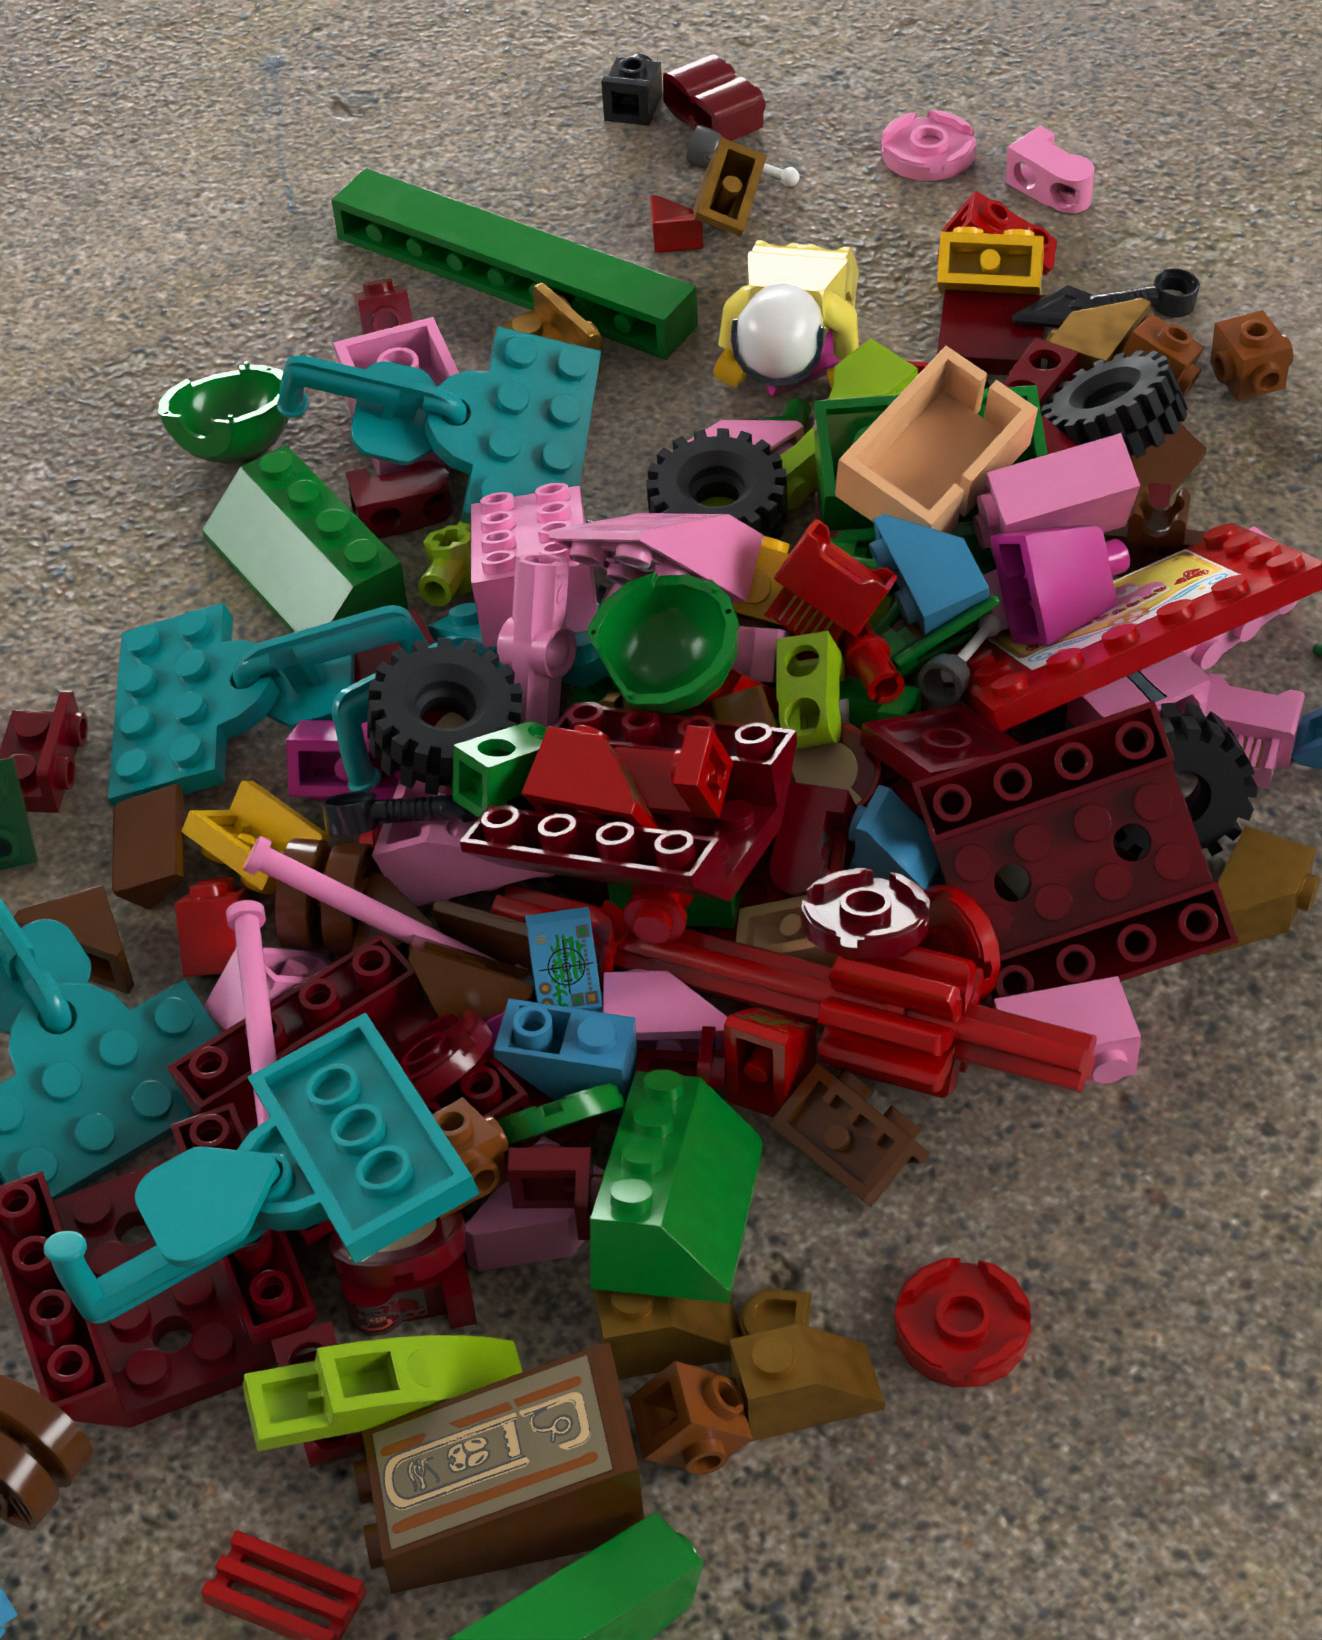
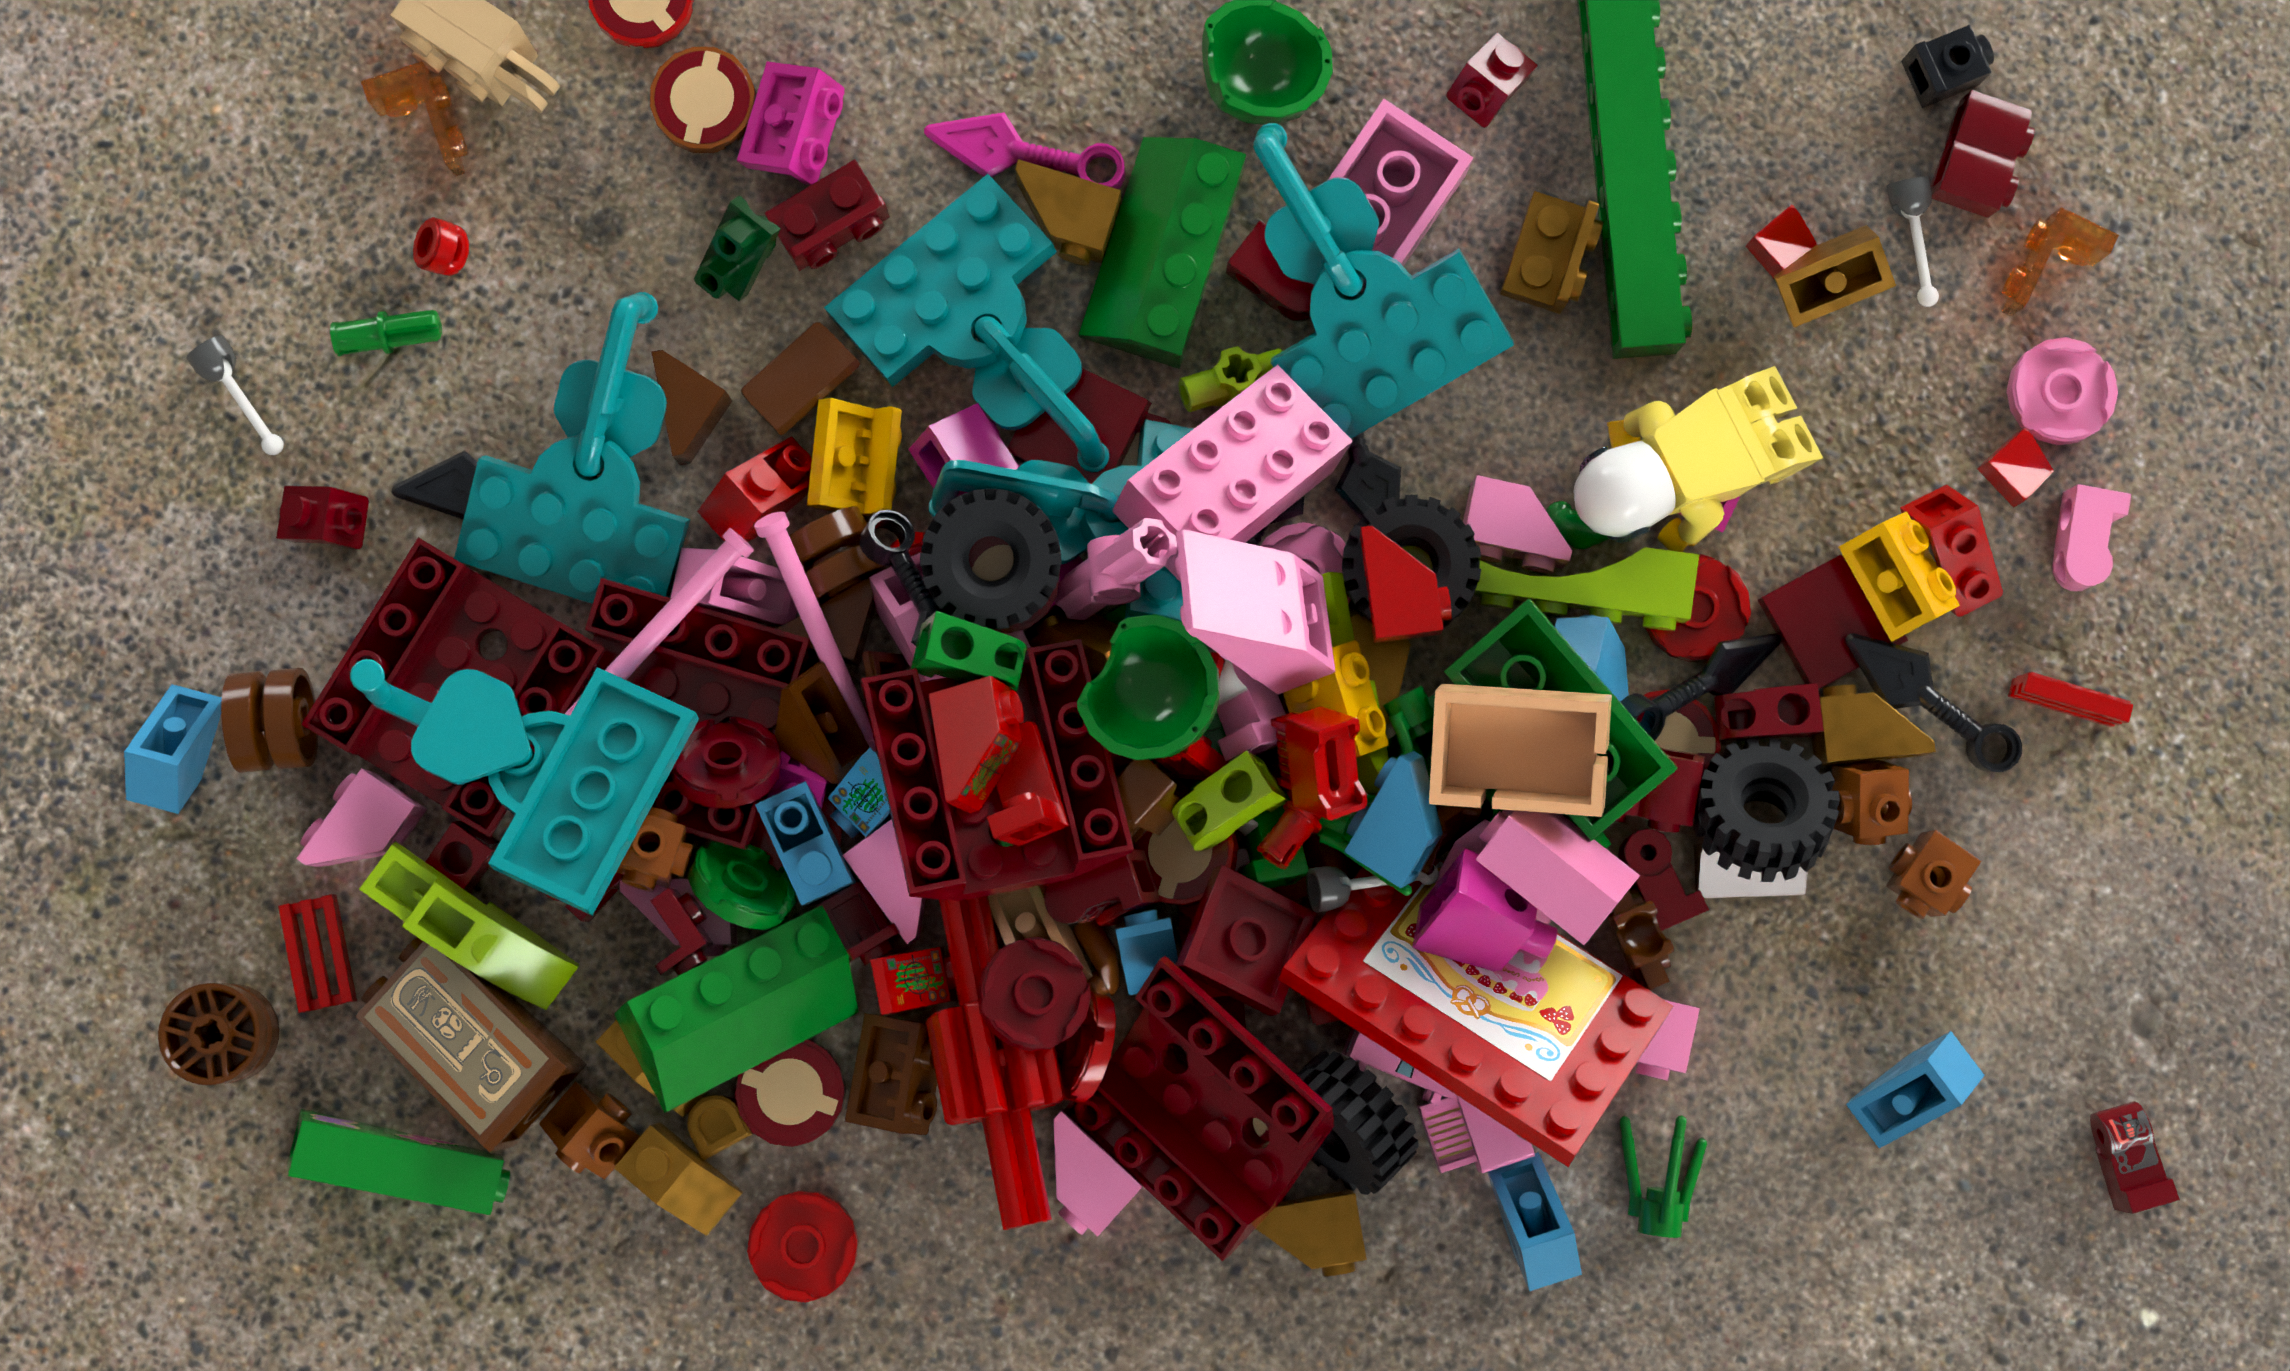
camera: 45 degrees right, 35 degrees up
(102, 623) = (993, 145): none -> dark pink piece
(198, 1446) = (362, 823): none -> bright pink slope
(205, 580) = (1070, 211): none -> pearl gold slope
(728, 477) = (1401, 591): none -> red slope
(799, 1238) = (792, 1095): none -> tile
(817, 95) = (2075, 238): none -> clear orange bracket
(959, 182) = (2017, 468): none -> red slope
(1171, 232) = (2071, 699): none -> red tile

